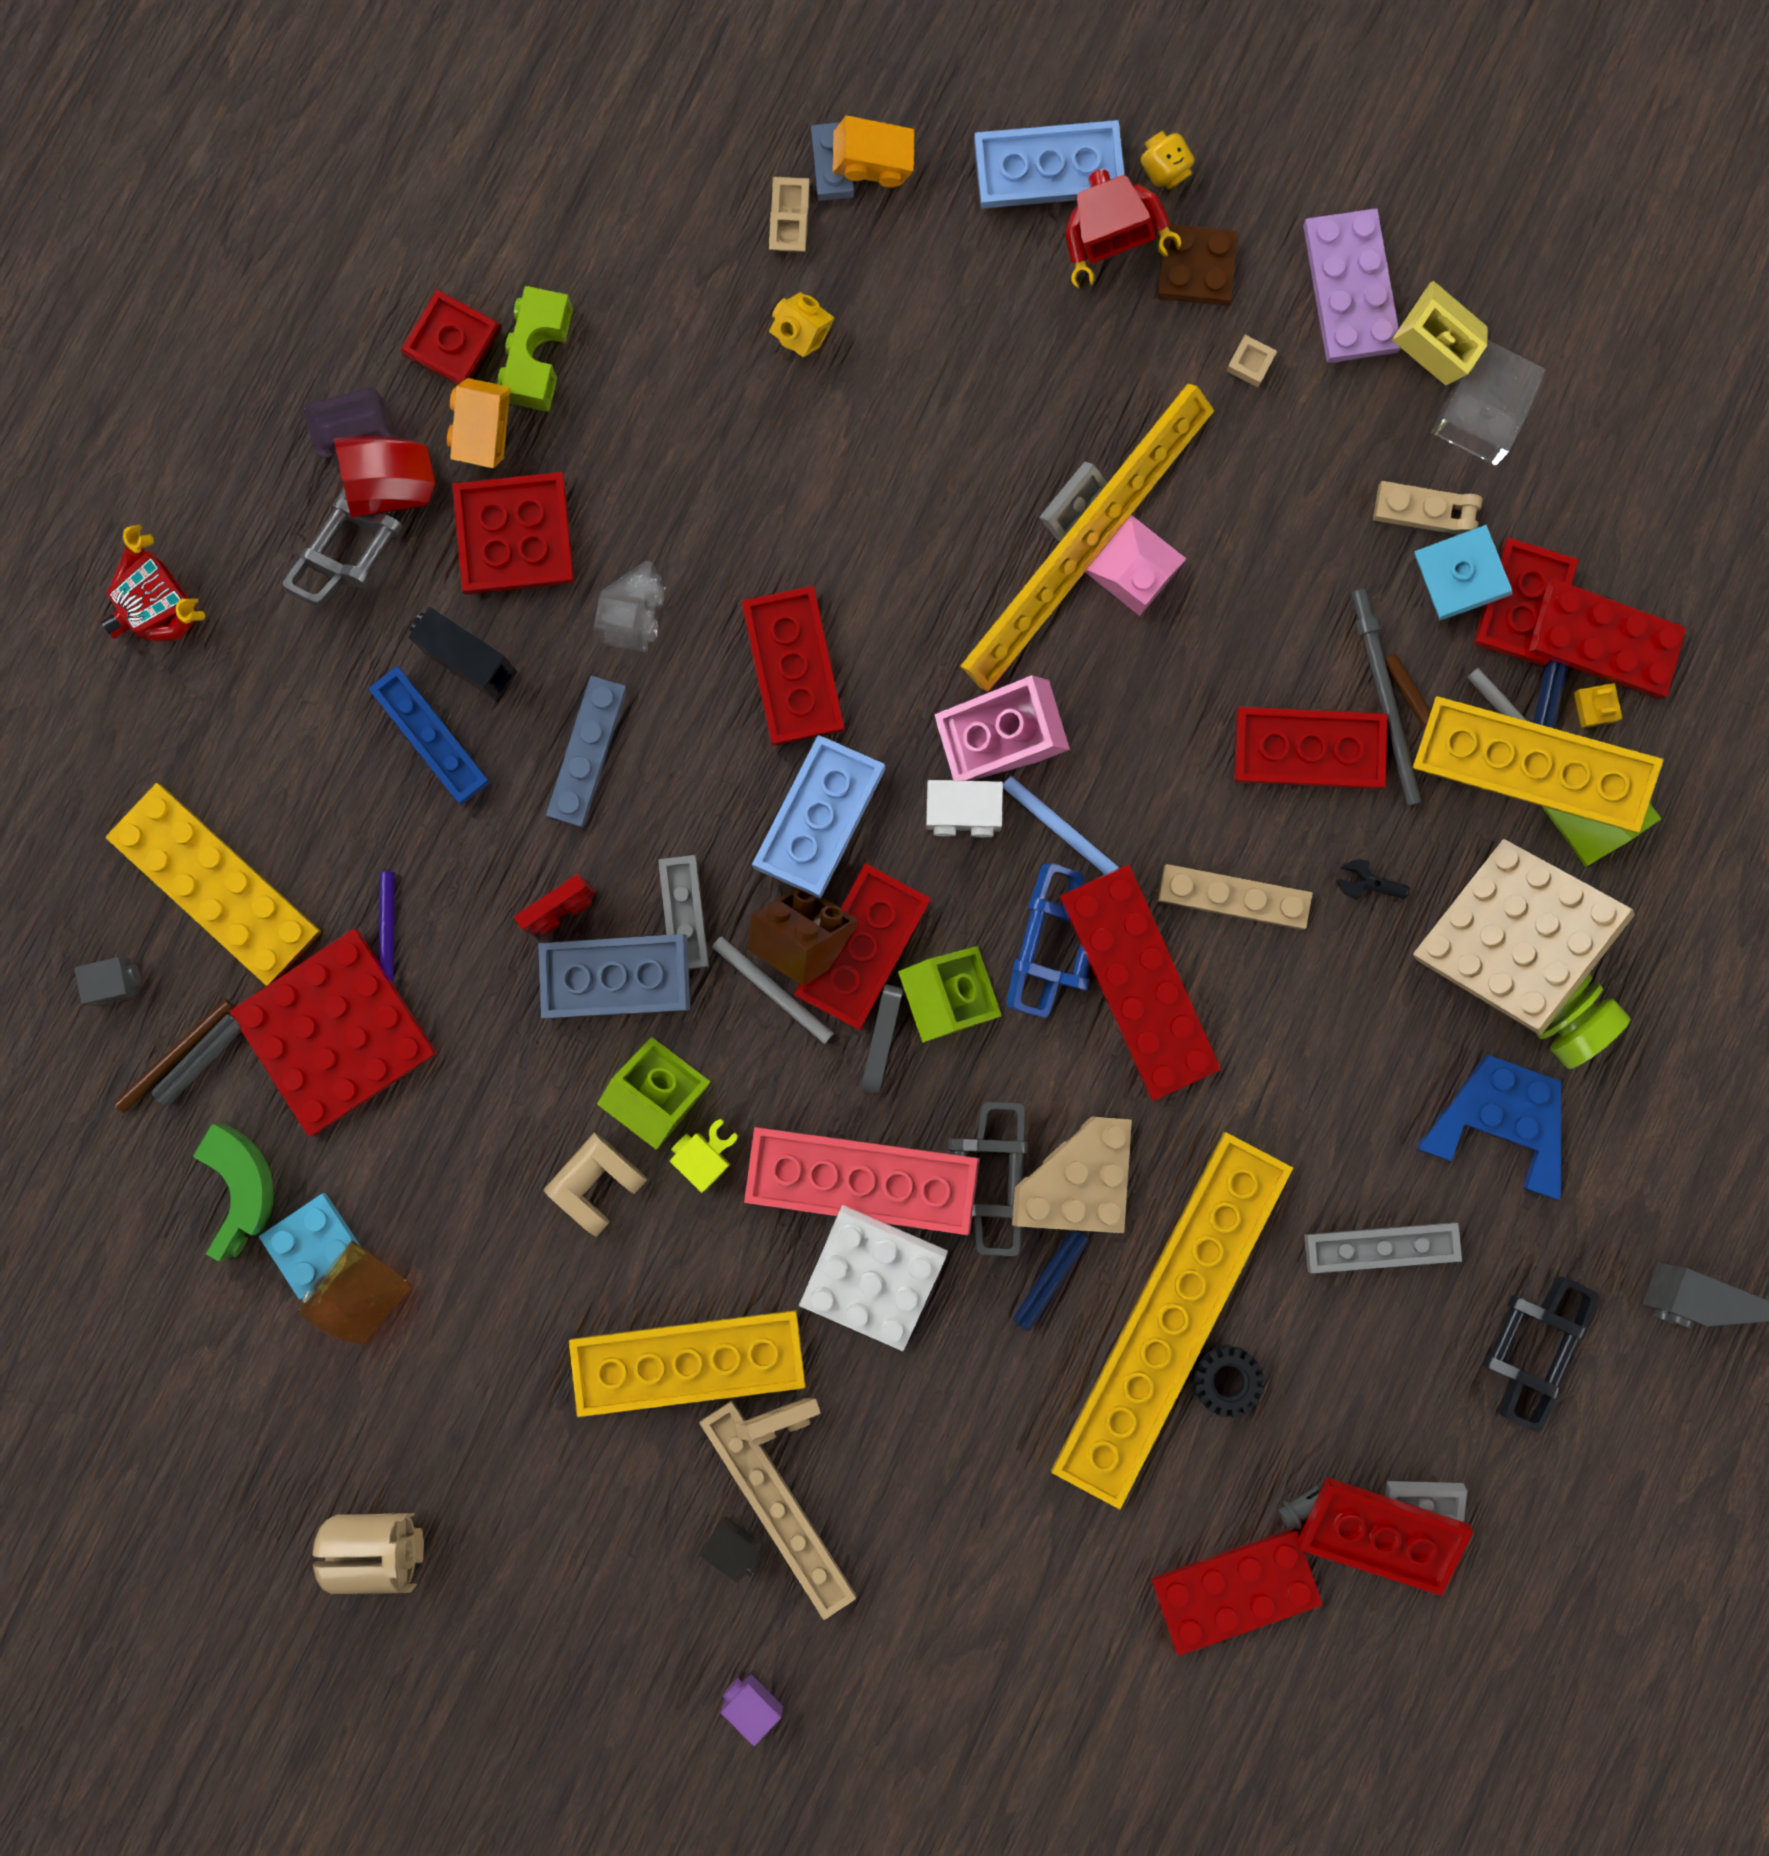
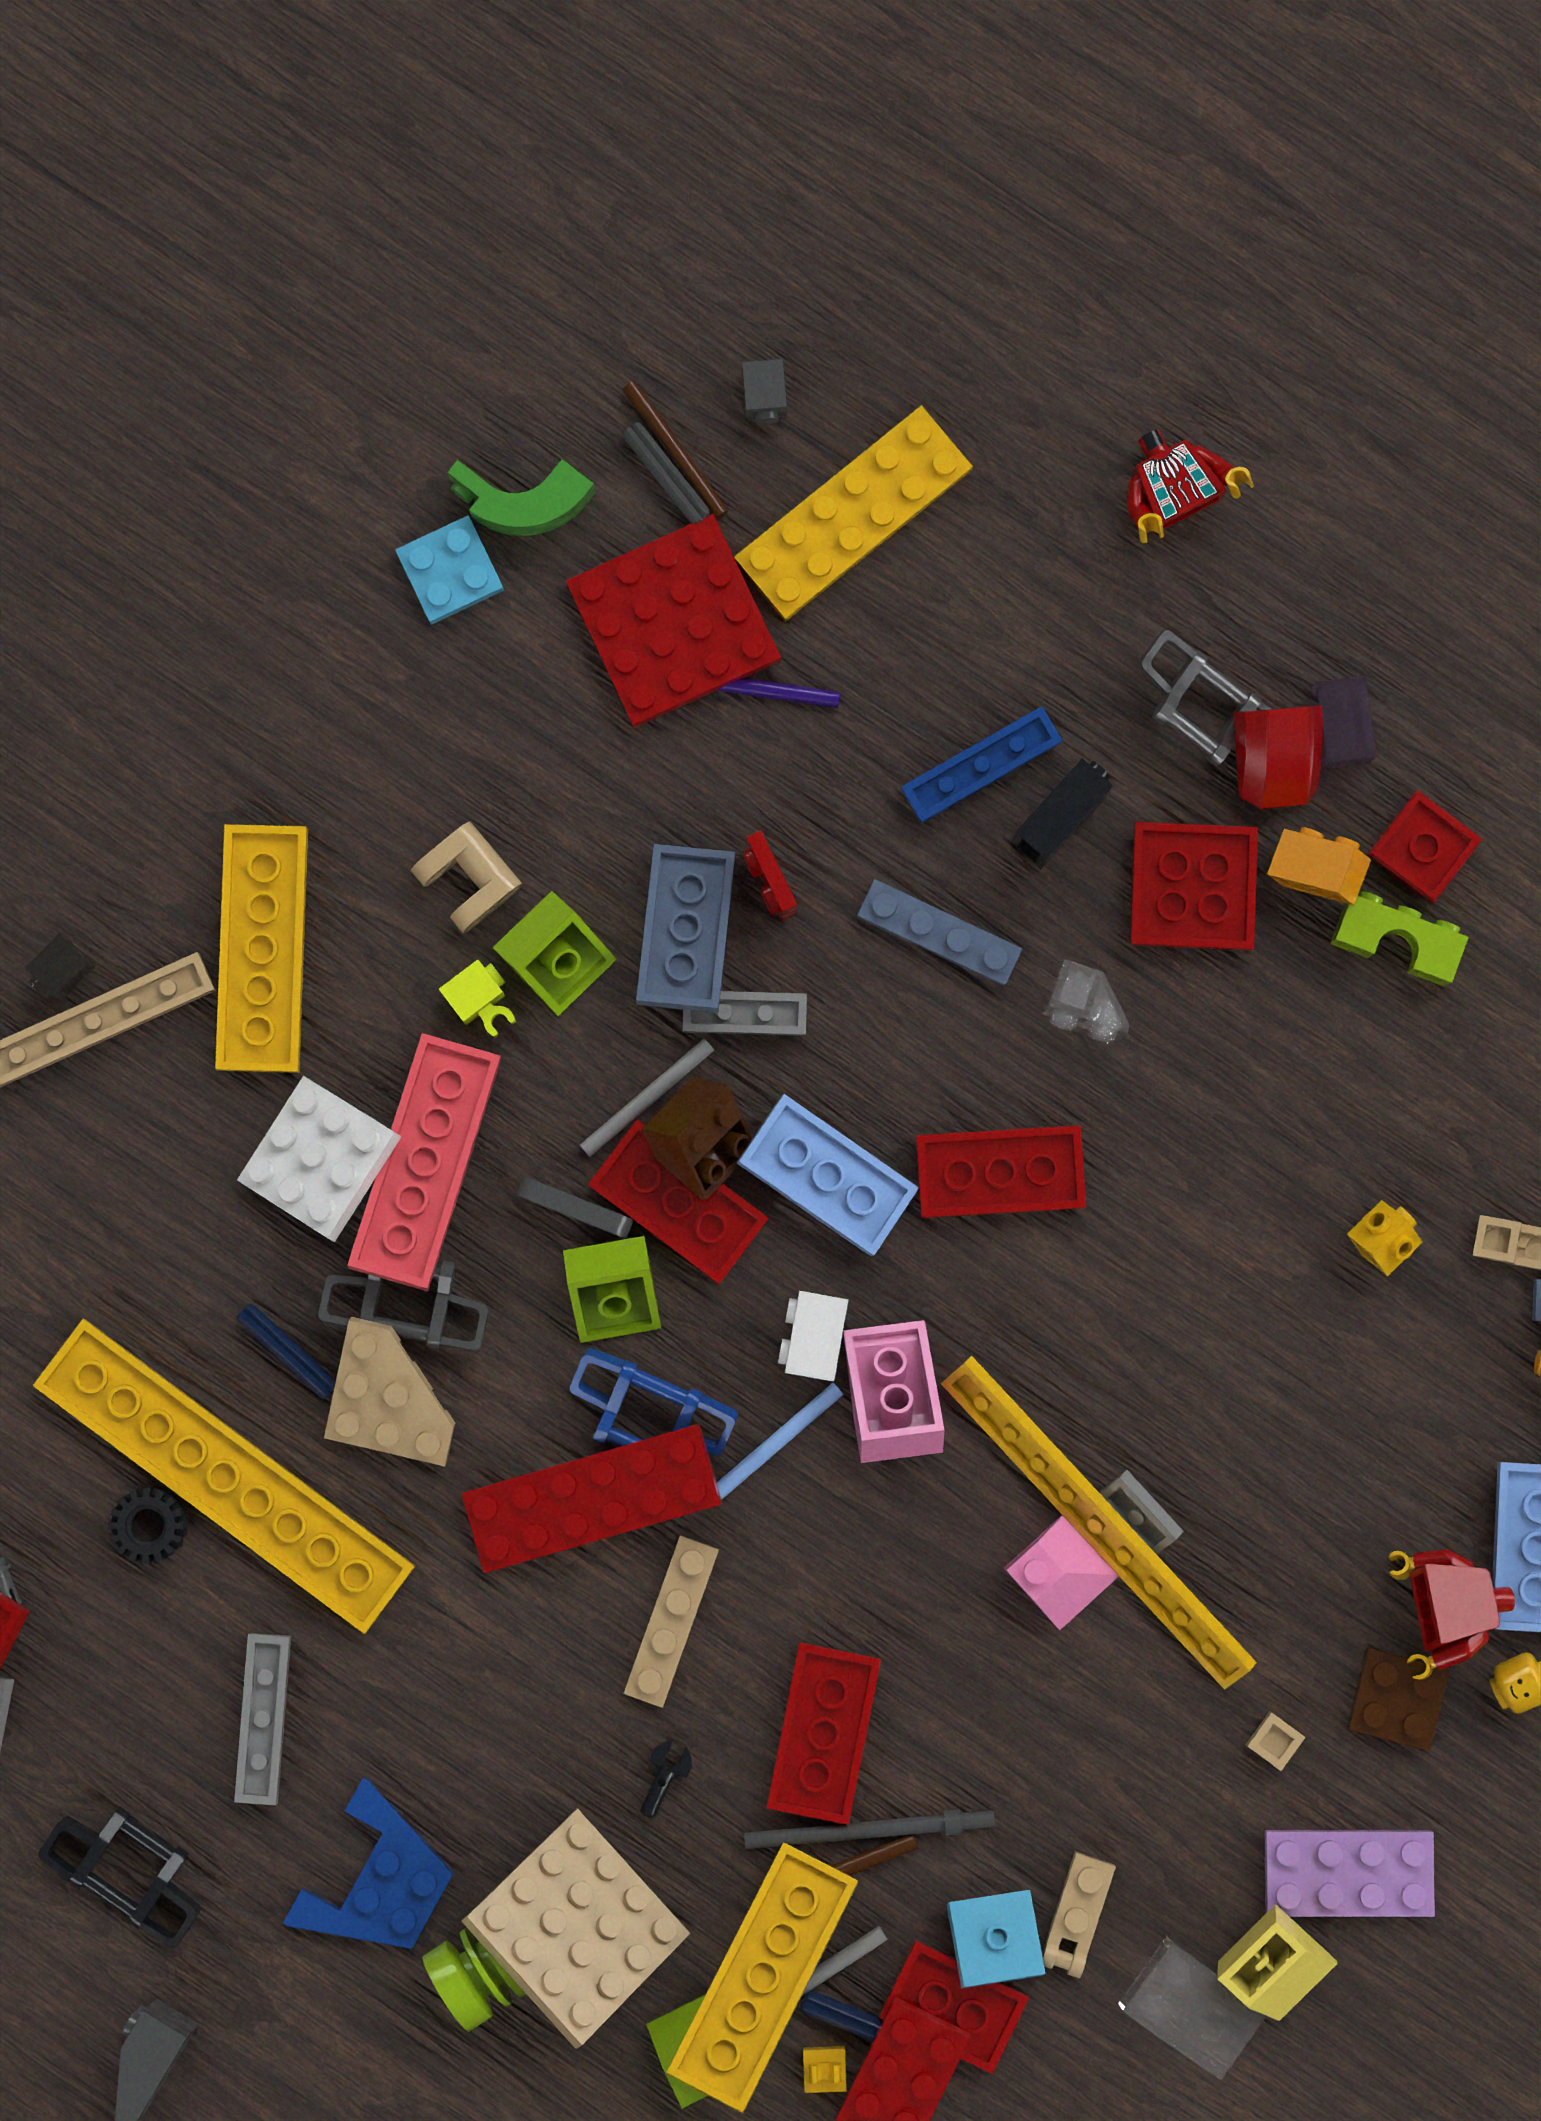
camera: 95 degrees right, 0 degrees up
(353, 1295) = (389, 607): clear orange slope -> none
(367, 1553) = (119, 588): tan cylinder -> none
(763, 1427) = (188, 1051): tan plate -> none

